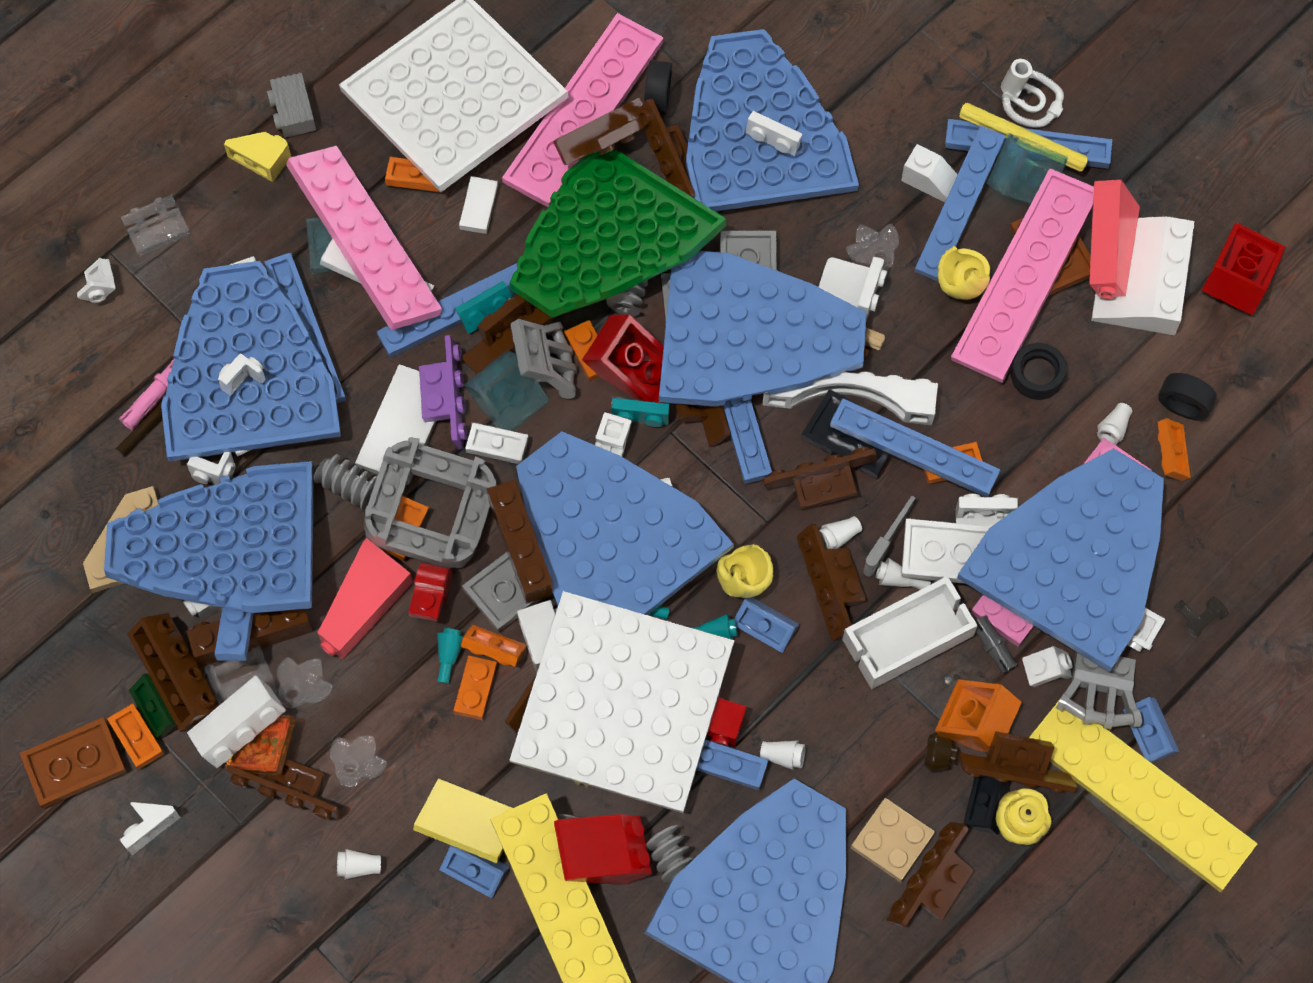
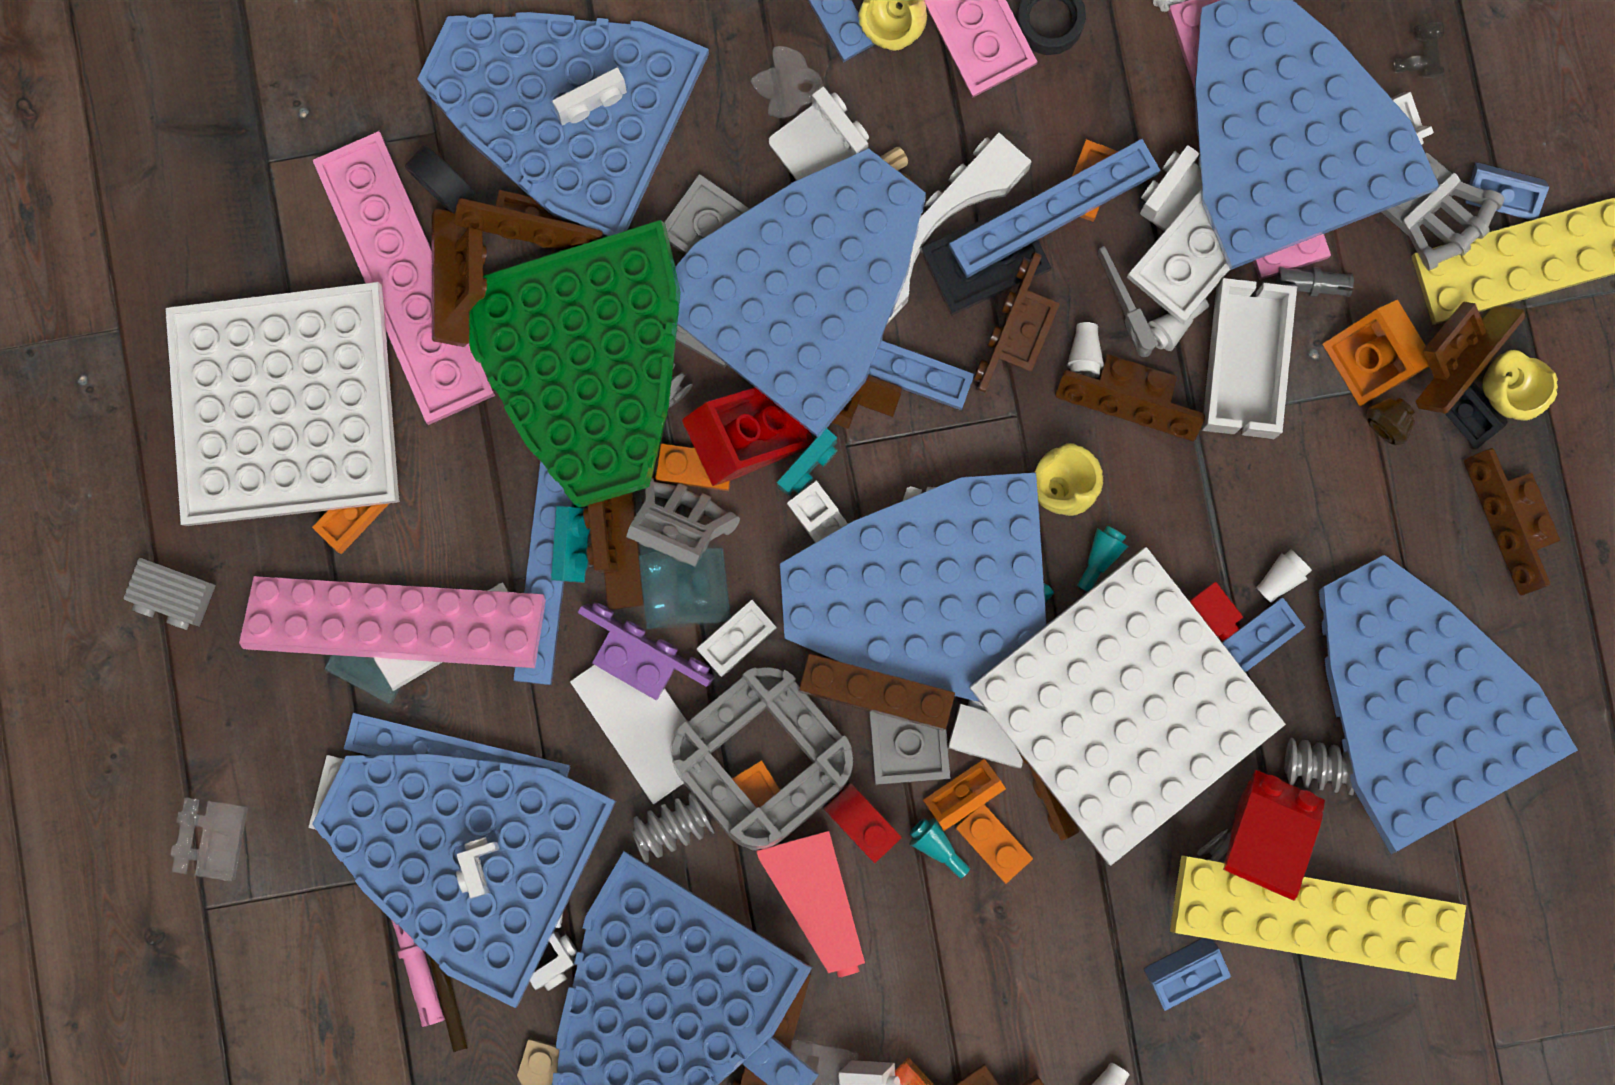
camera: 50 degrees left, 15 degrees up
(99, 282) = (238, 945): white bracket -> none
(260, 153) = (205, 666): light yellow slope -> none
(304, 679) = (861, 1016): clear plate -> none
(357, 756) = (985, 1016): clear plate -> none
(461, 820) = (1135, 950): light yellow tile -> none
(478, 205) = (437, 469): white tile -> none
(765, 624) = (1131, 495): medium blue slope -> none
(892, 840) = (1444, 530): tan plate -> none
(1047, 666) = (1374, 245): white bracket -> none

